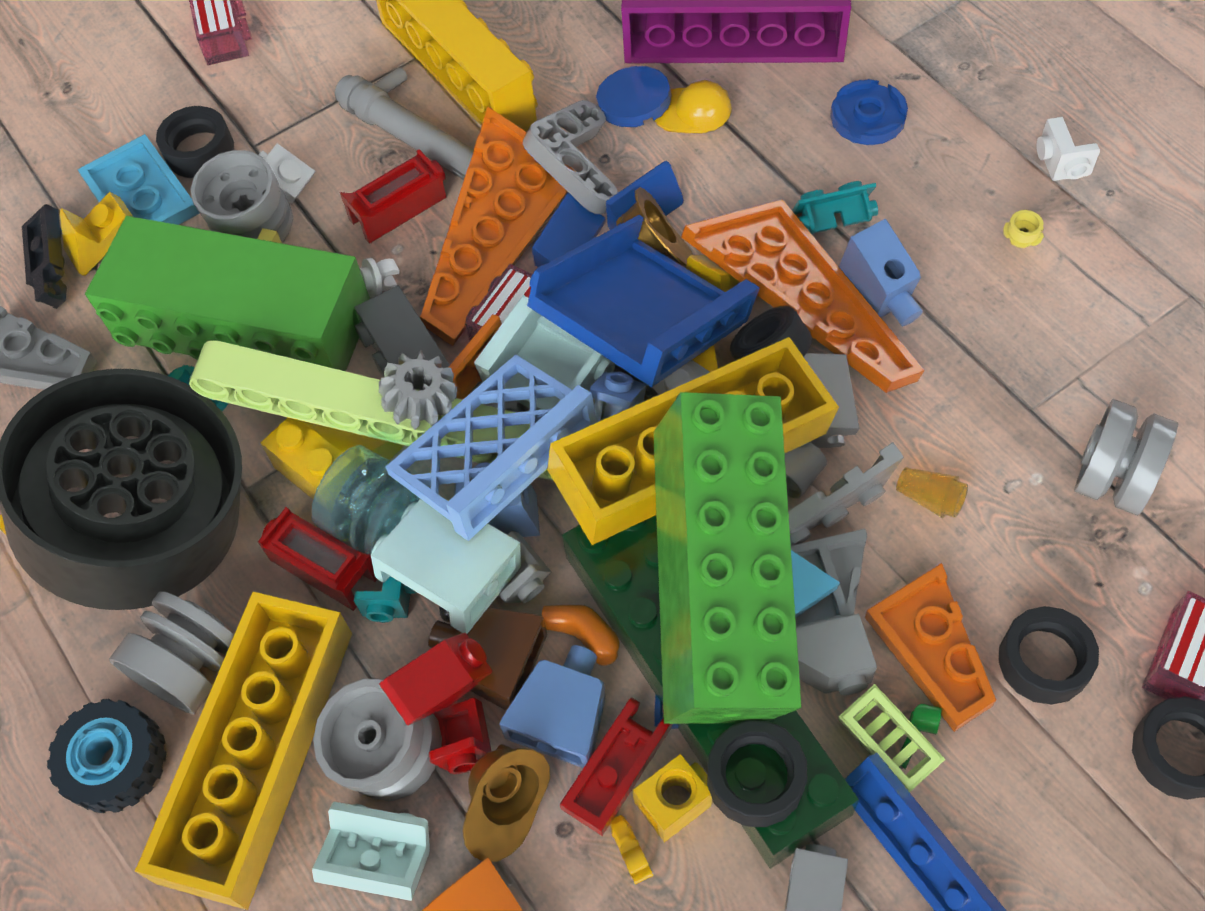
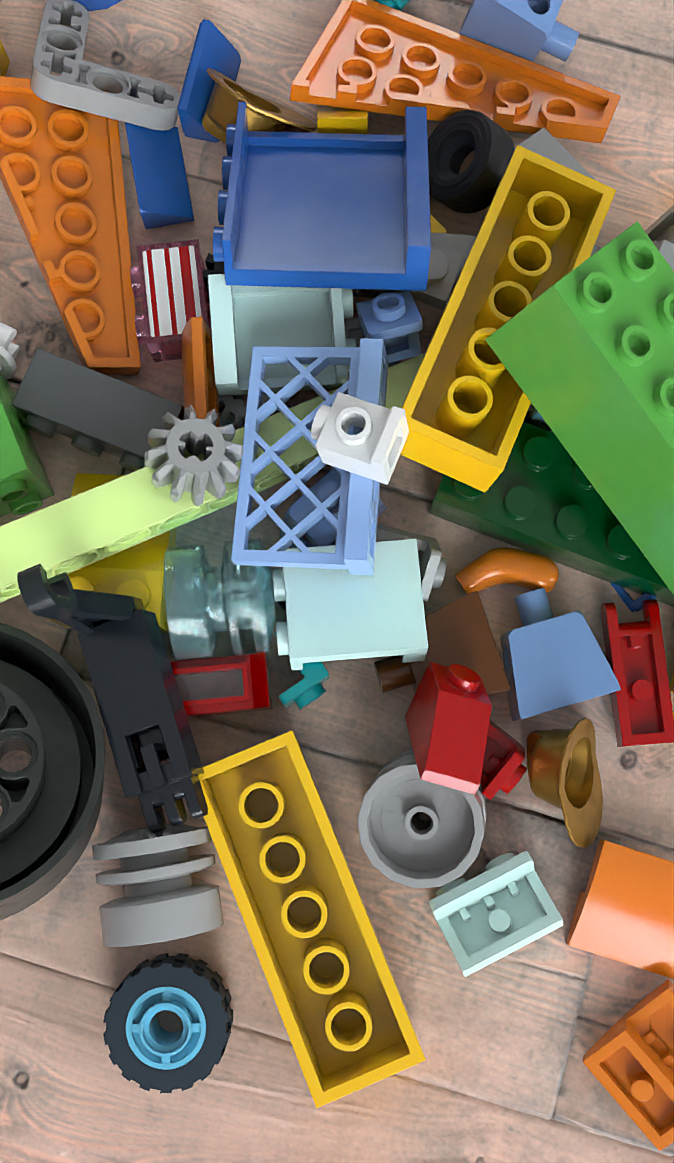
camera: 45 degrees left, 20 degrees up
(267, 509) = (132, 691): none -> black hinge
(511, 426) = (370, 452): none -> white brick

